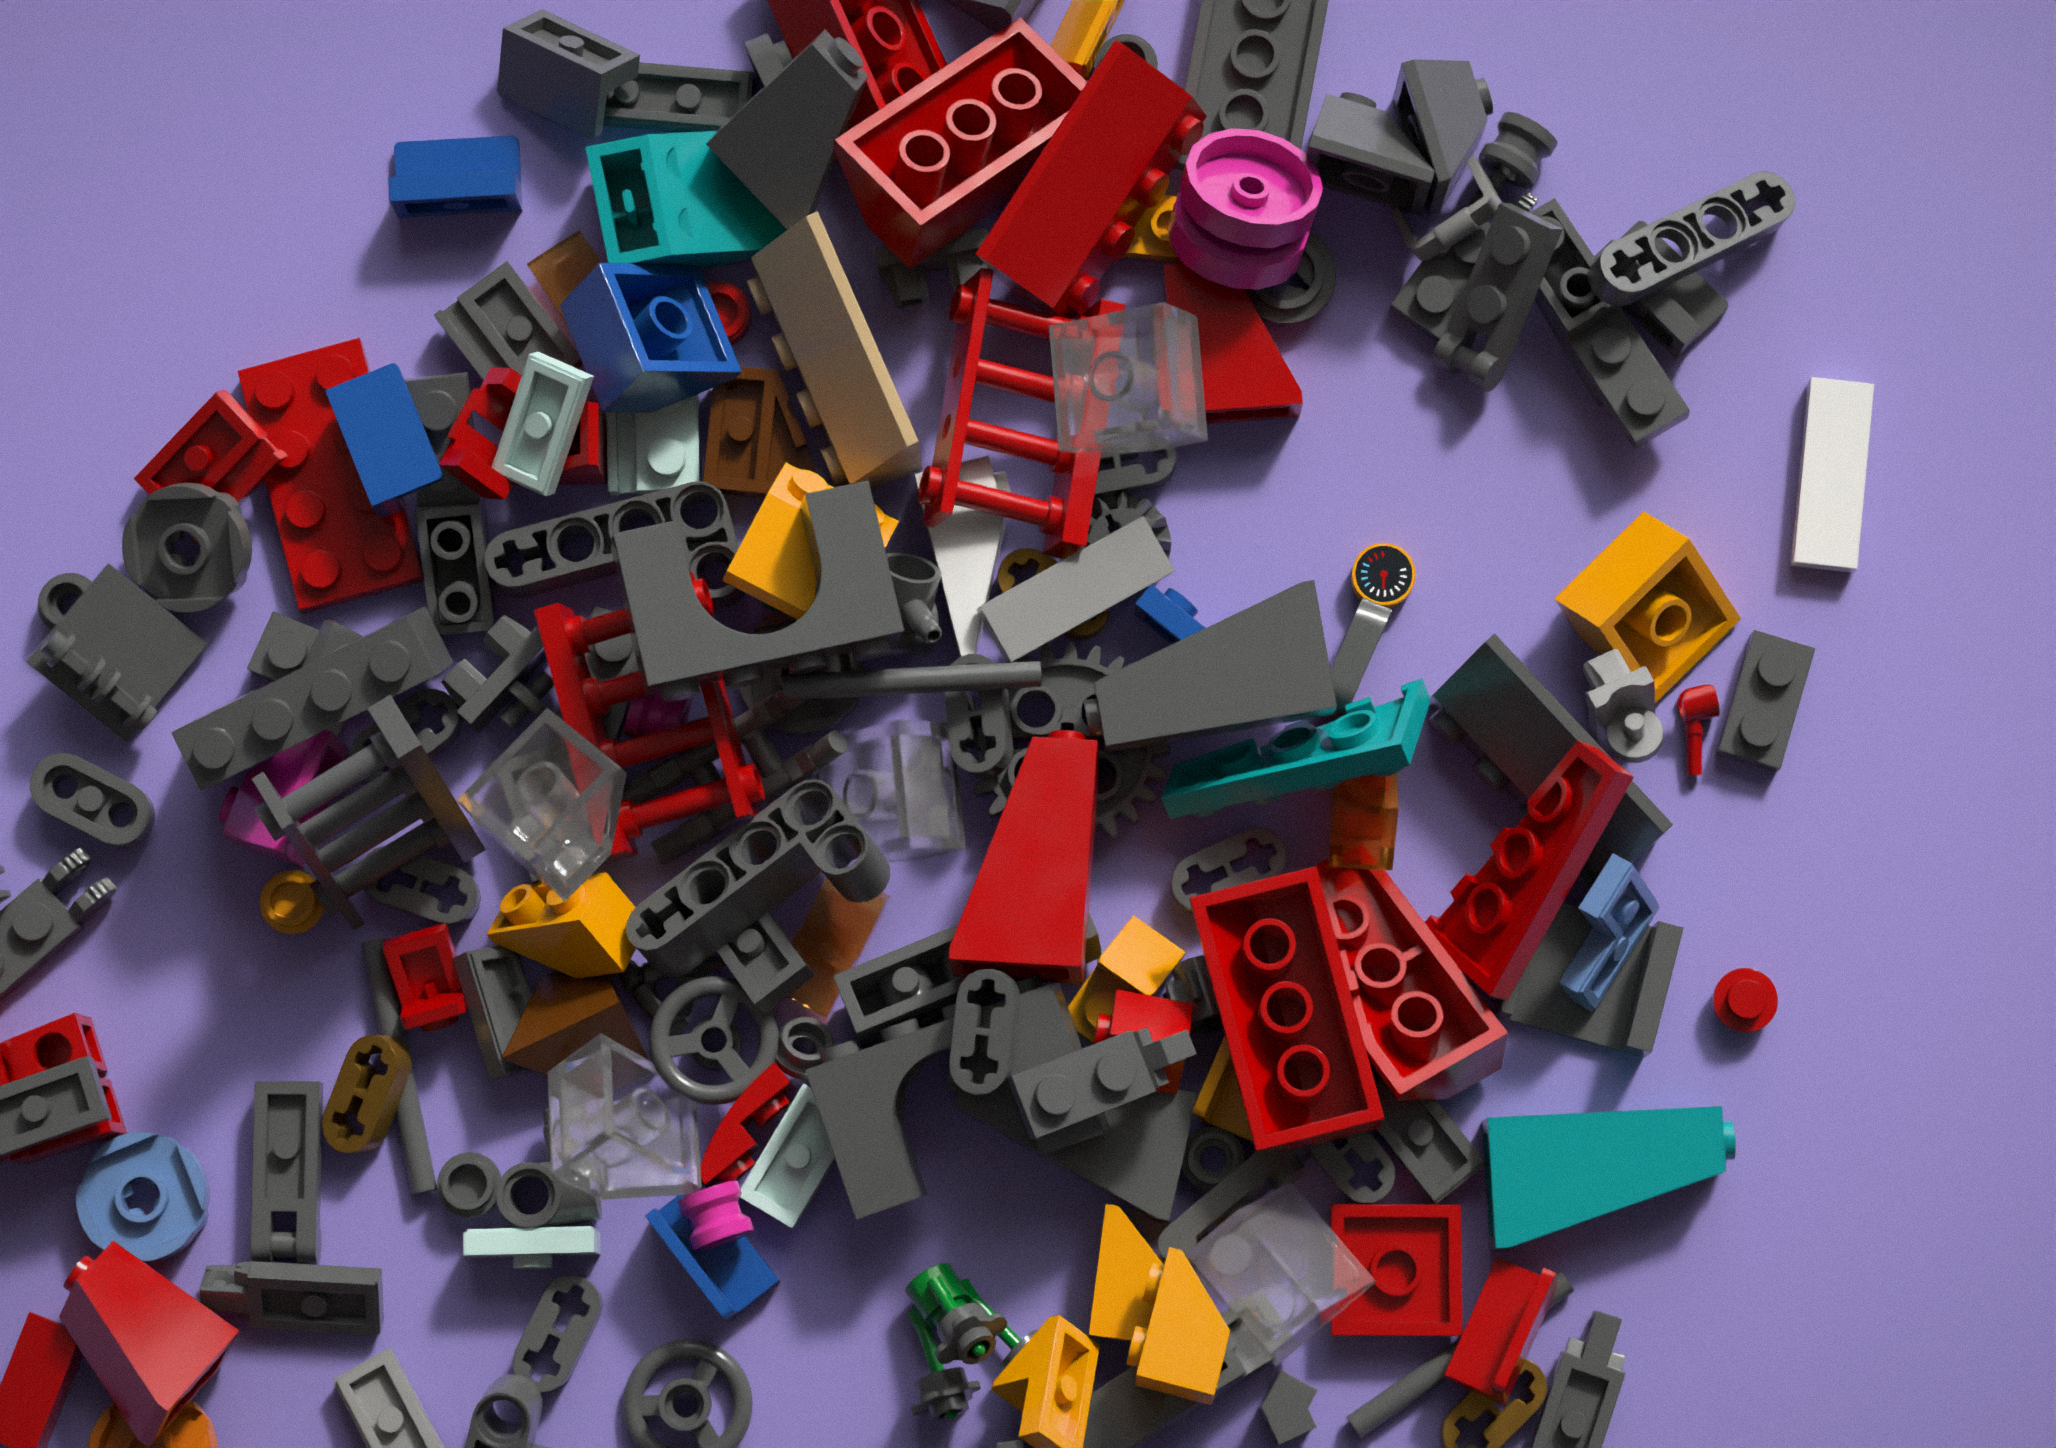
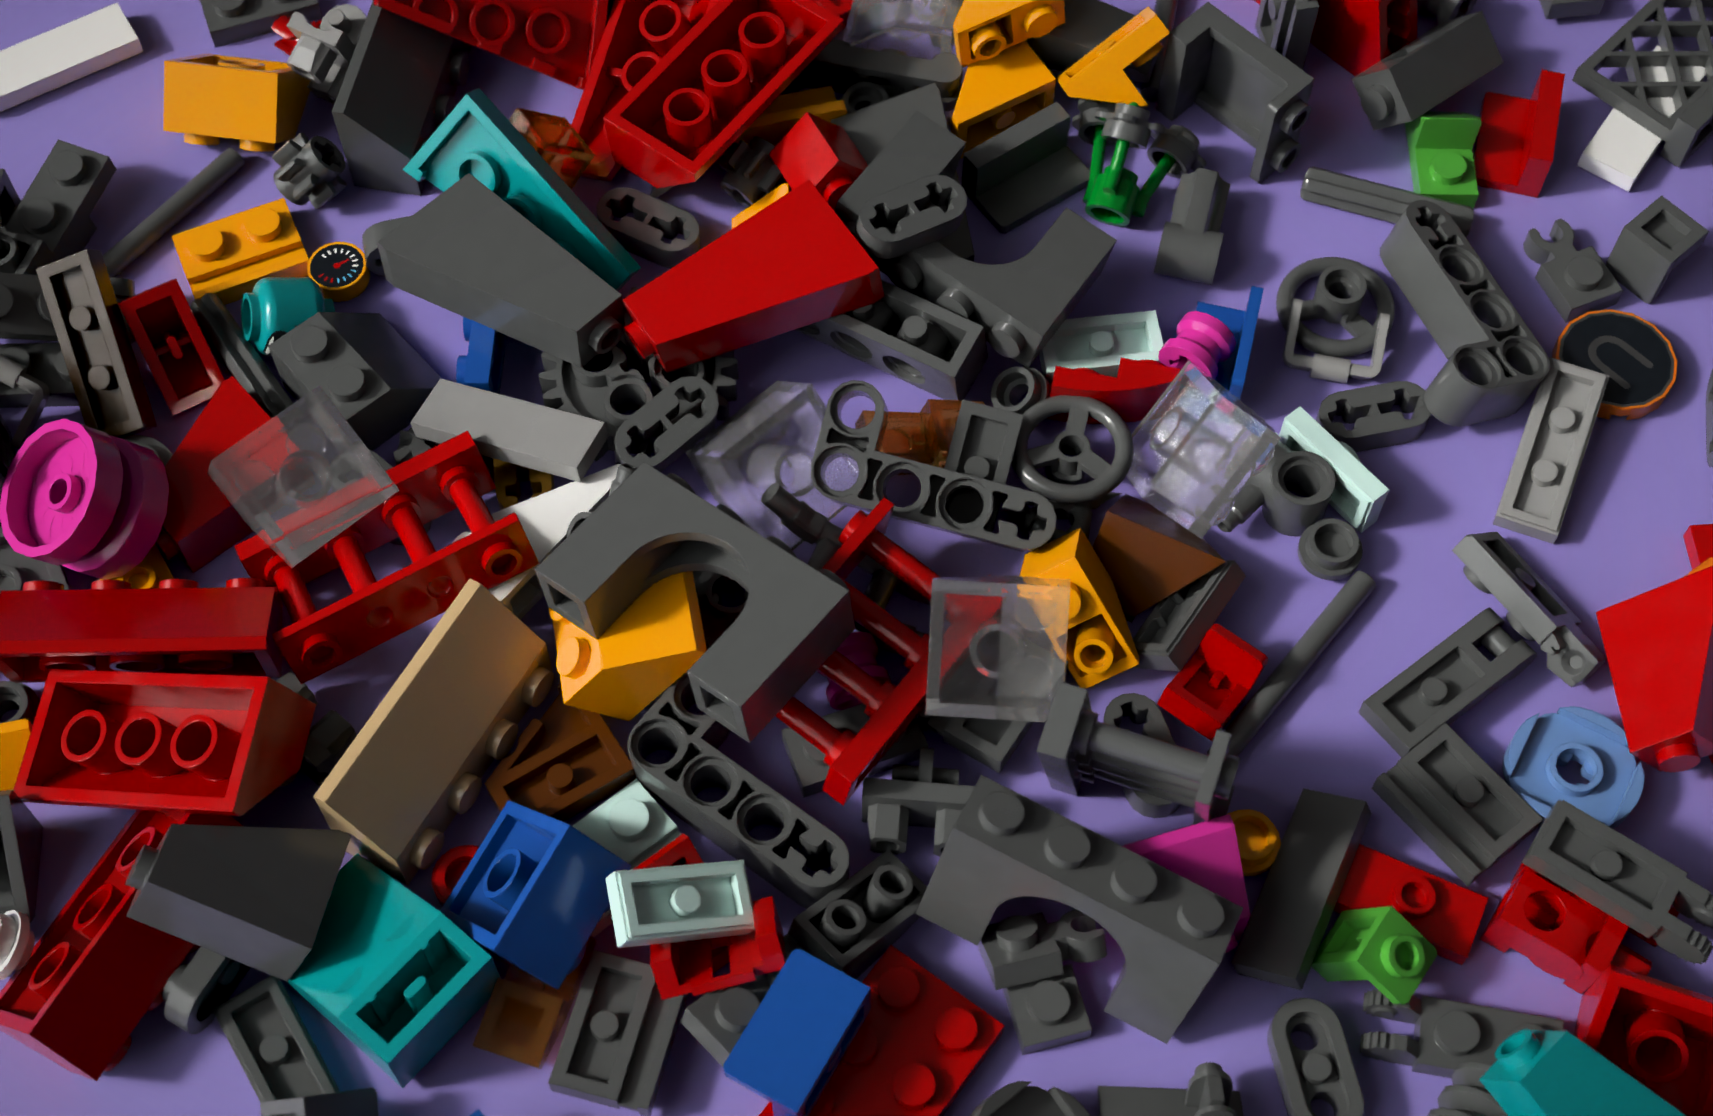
camera: 130 degrees left, 20 degrees down
(131, 909) = (1378, 948): none -> bright green bracket
(152, 983) = (1432, 905): none -> red plate
(190, 1084) = (1456, 804): none -> dark grey plate
(224, 910) = (1301, 889): none -> dark grey tile
(366, 1093) = (1340, 677): pearl gold beam -> none
(631, 1345) = (1331, 367): none -> light grey piece
(843, 1329) = (1193, 235): none -> dark grey piece
(911, 680) = (662, 450): dark grey piece -> none
(1028, 1248) = (1024, 169): none -> dark grey panel
(1095, 1079) = (880, 126): dark grey hinge -> none
(1243, 519) = (361, 368): none -> dark grey slope
(1339, 437) = (238, 354): none -> dark grey axle
(1351, 495) = (279, 307): none -> teal head
(1381, 383) = (172, 345): none -> red slope
(1415, 310) = (96, 344): none -> dark brown plate
(1466, 507) = (241, 250): none -> light orange plate
(1504, 608) = (309, 170): none -> dark grey gear
(1555, 449) = (172, 211): none -> dark grey bar

